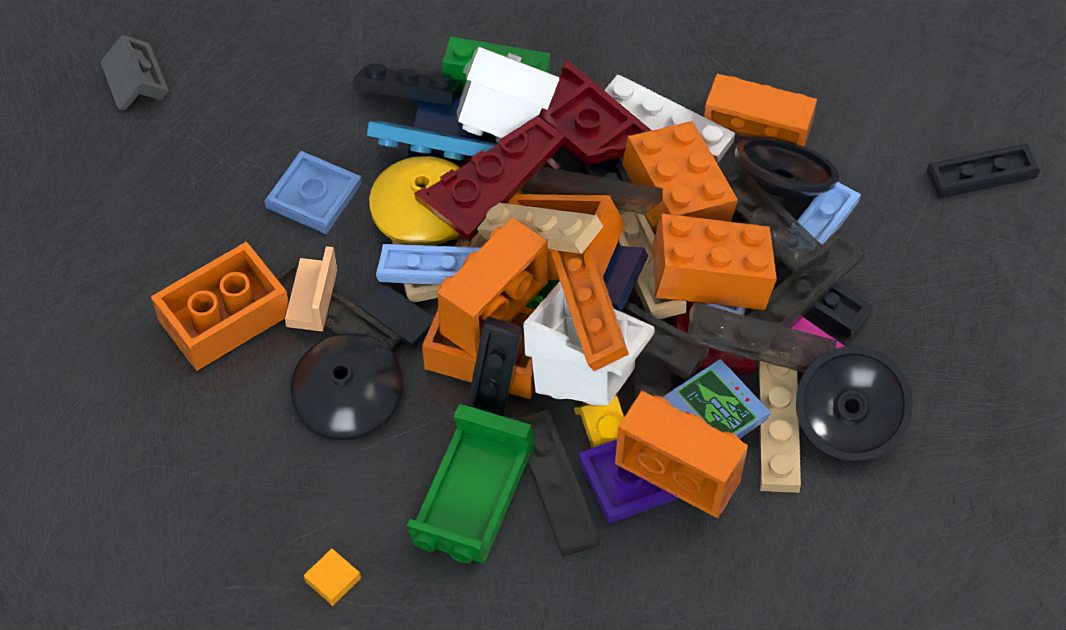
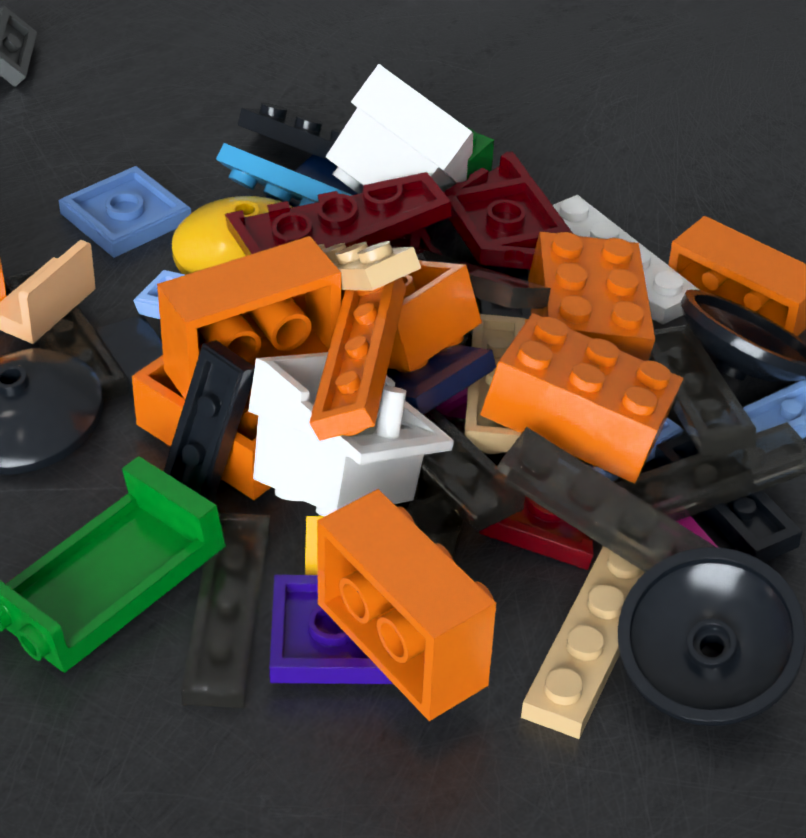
camera: 20 degrees right, 15 degrees down
(720, 400) = (518, 572): tile -> none

